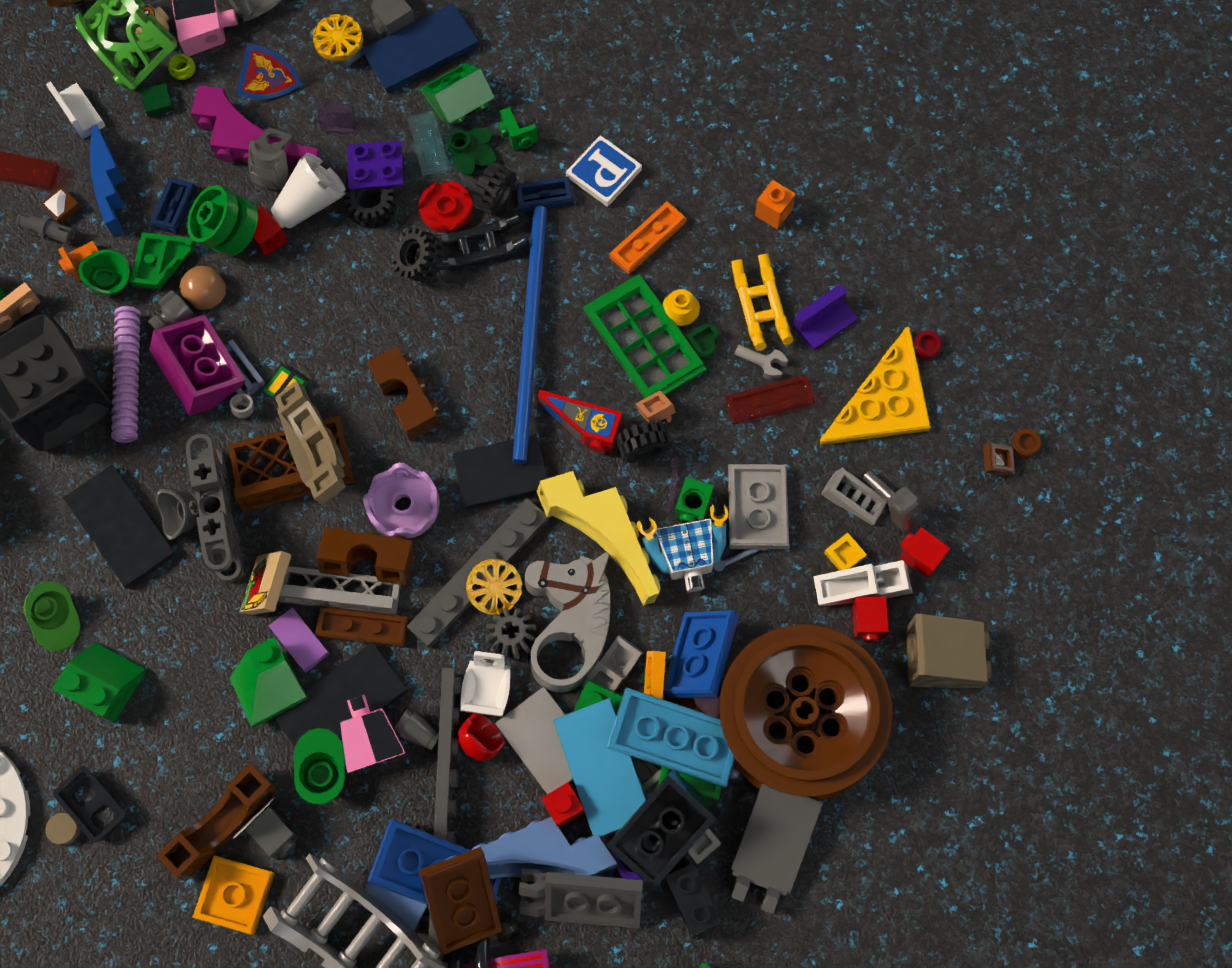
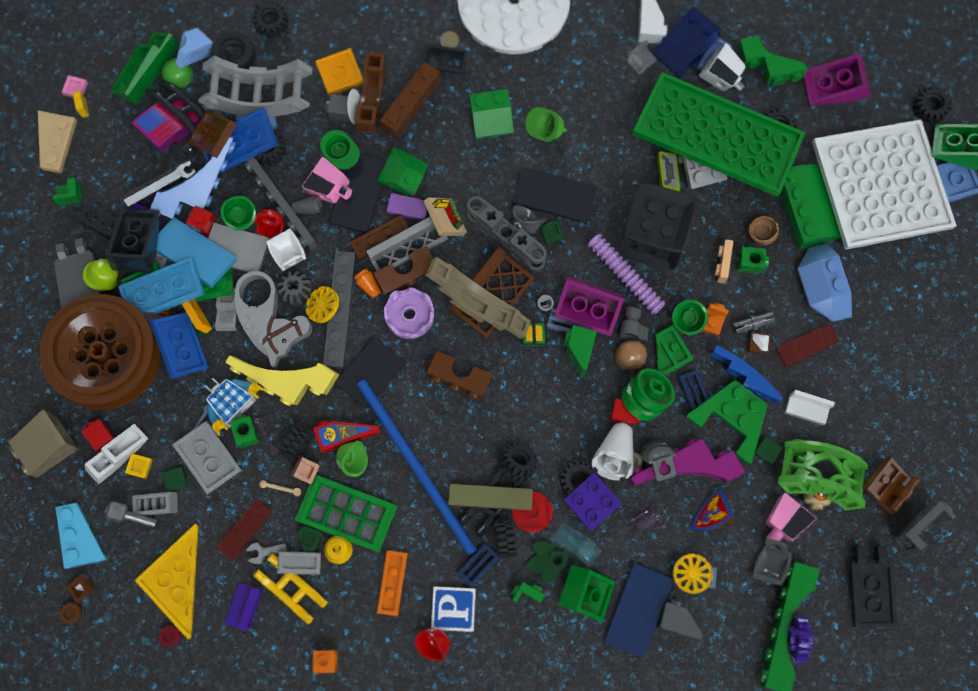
camera: 140 degrees right, 5 degrees up
(146, 153) = (739, 410): none -> green wing
(161, 479) = (552, 232): none -> dark green tile
(178, 775) = (410, 100): none -> reddish brown brick
(179, 61) = (766, 483): lime plate -> none
(249, 318) = (579, 348): none -> green slope
(421, 577) = (367, 282): none -> orange cone
(476, 242) = (490, 497): none -> olive tile
(508, 778) = (238, 213): none -> green helmet
(595, 385) = (352, 458): none -> bright green helmet
(648, 146) = (433, 644): none -> red helmet
(682, 400) = (263, 484): none -> tan hinge
(733, 319) = (298, 563): none -> light grey tile
(740, 823) = (99, 275): none -> lime helmet
(812, 508) = (174, 479): none -> dark green tile
(923, 551) = (91, 496): red brick -> none
(970, 520) = (76, 538): none -> medium azure wing

